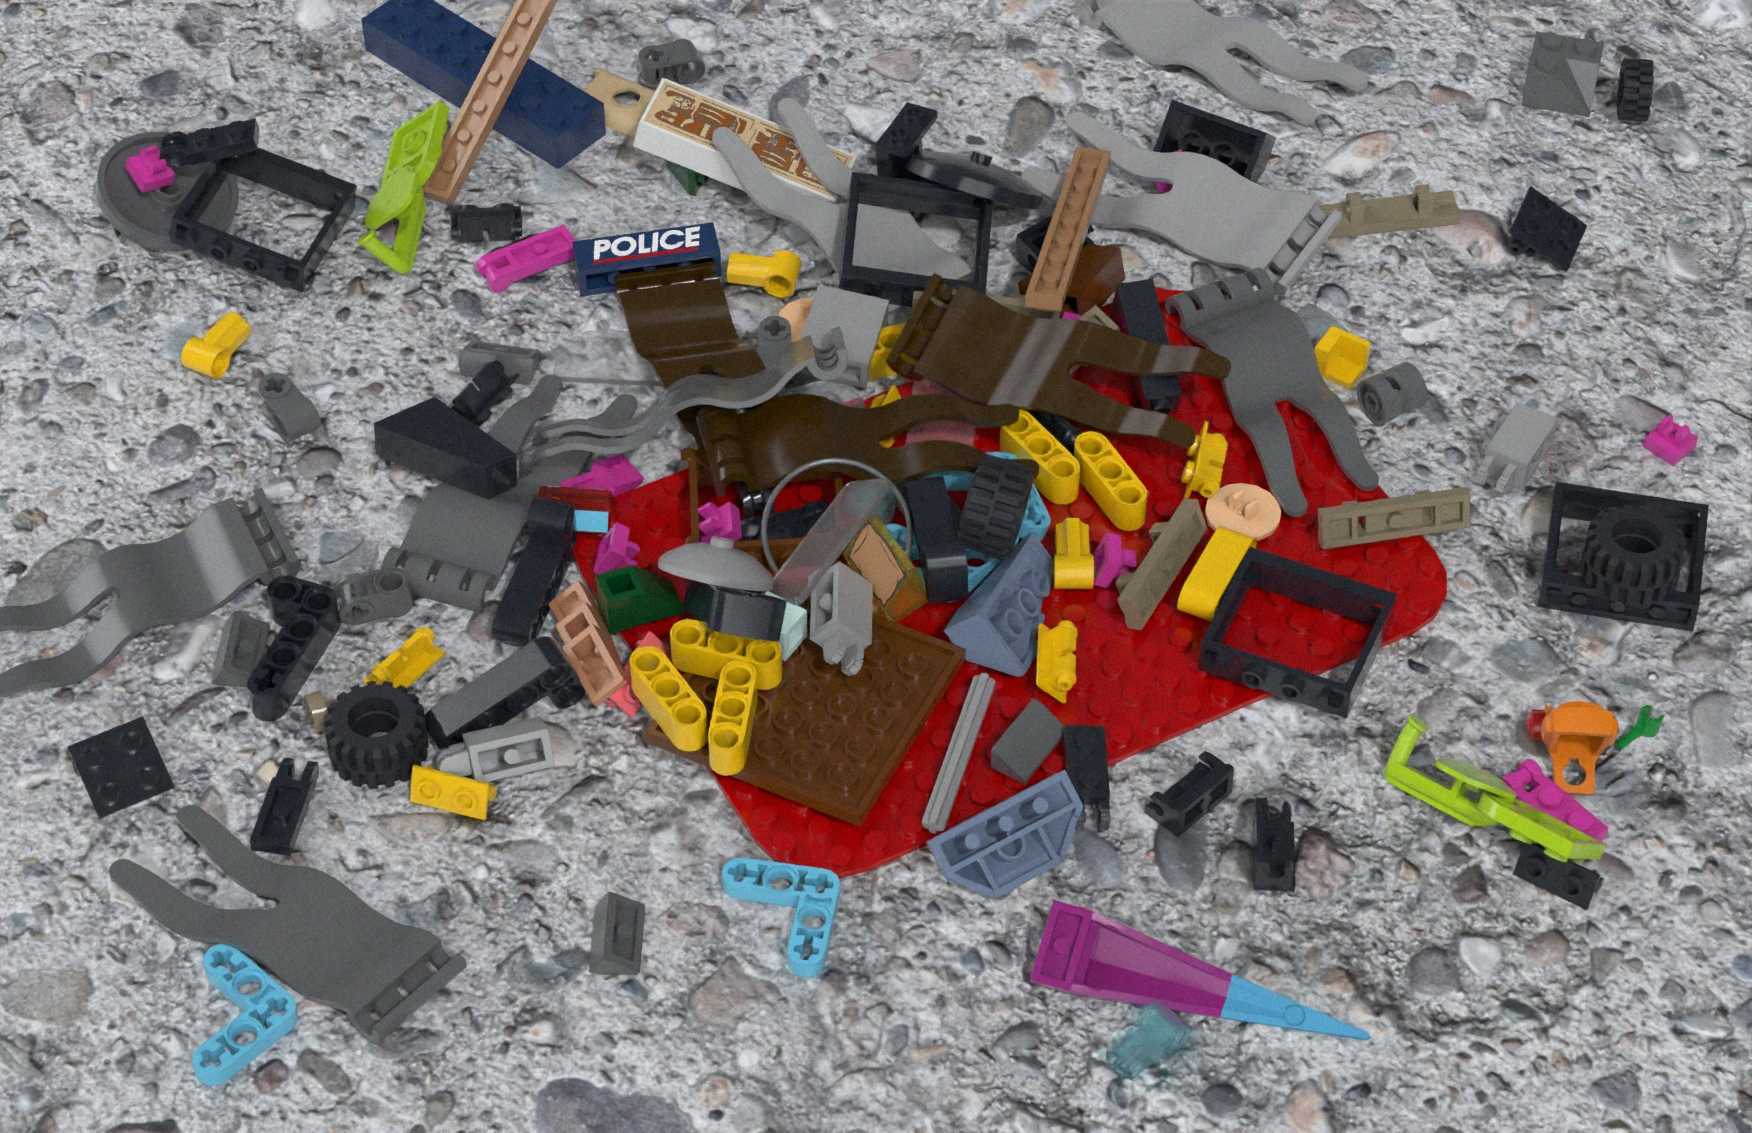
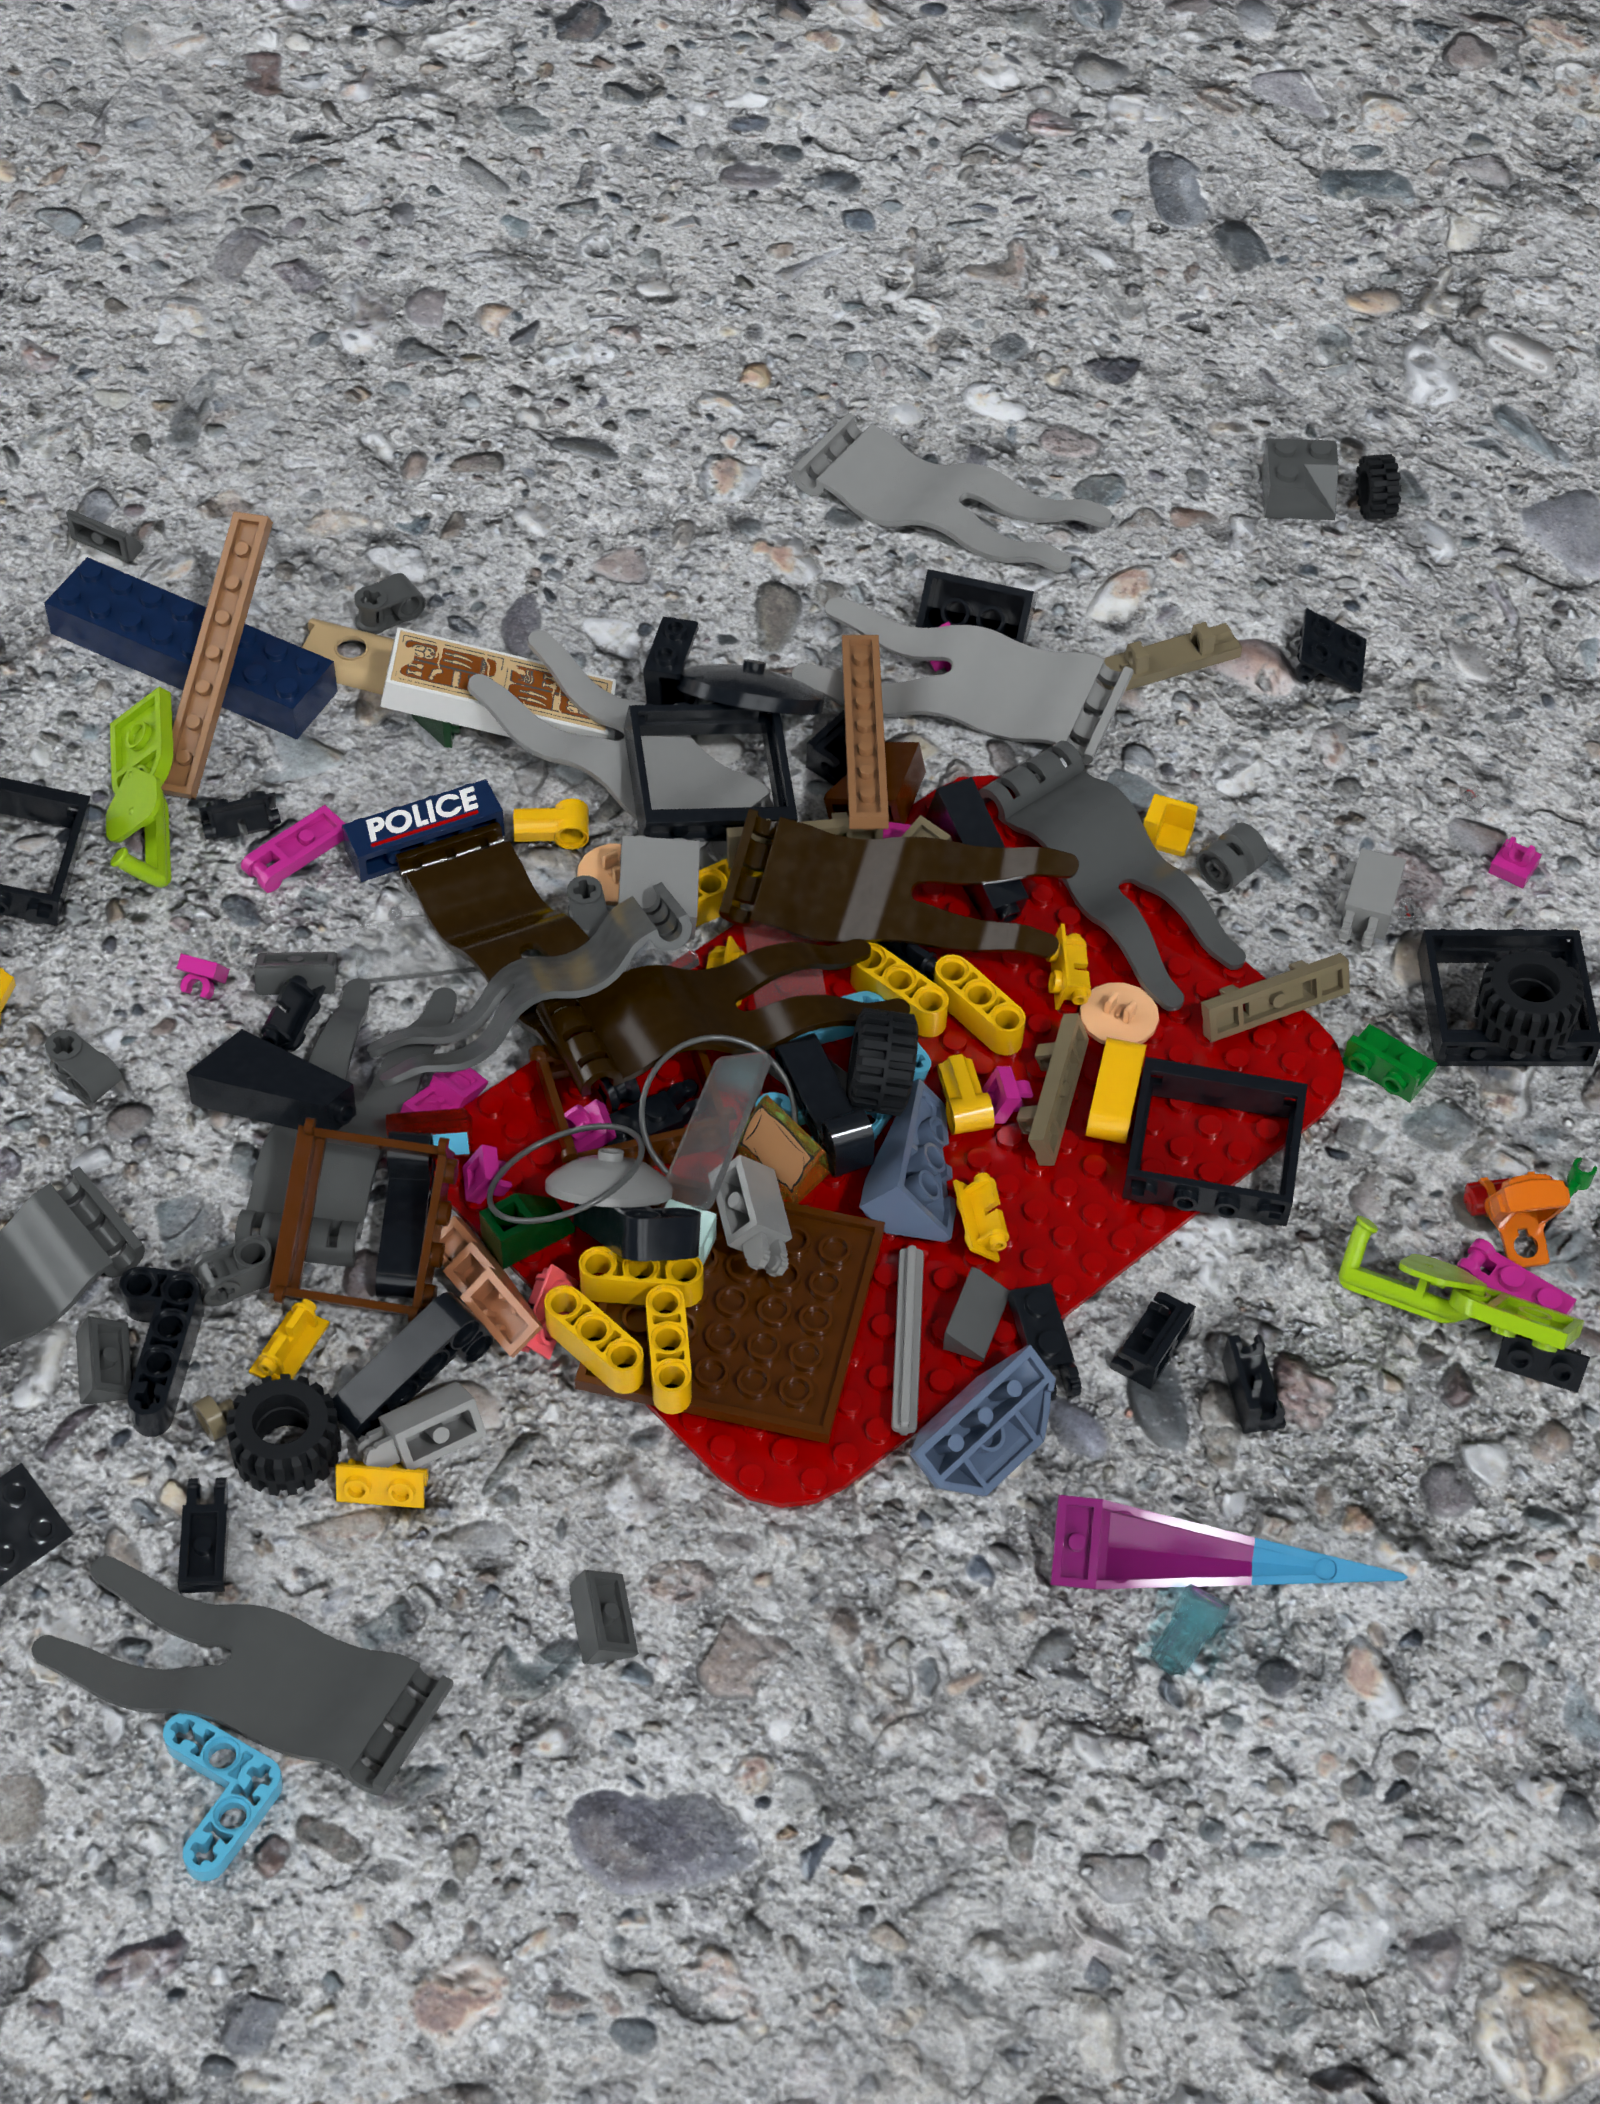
camera: 15 degrees left, 5 degrees up
(414, 346) = (203, 971): none -> dark pink tile
(442, 541) = (300, 1208): none -> reddish brown window
(686, 575) = (519, 1220): none -> dark grey piece
(807, 902) = (794, 1537): medium azure beam -> none
(1490, 595) = (1388, 1062): none -> green bracket

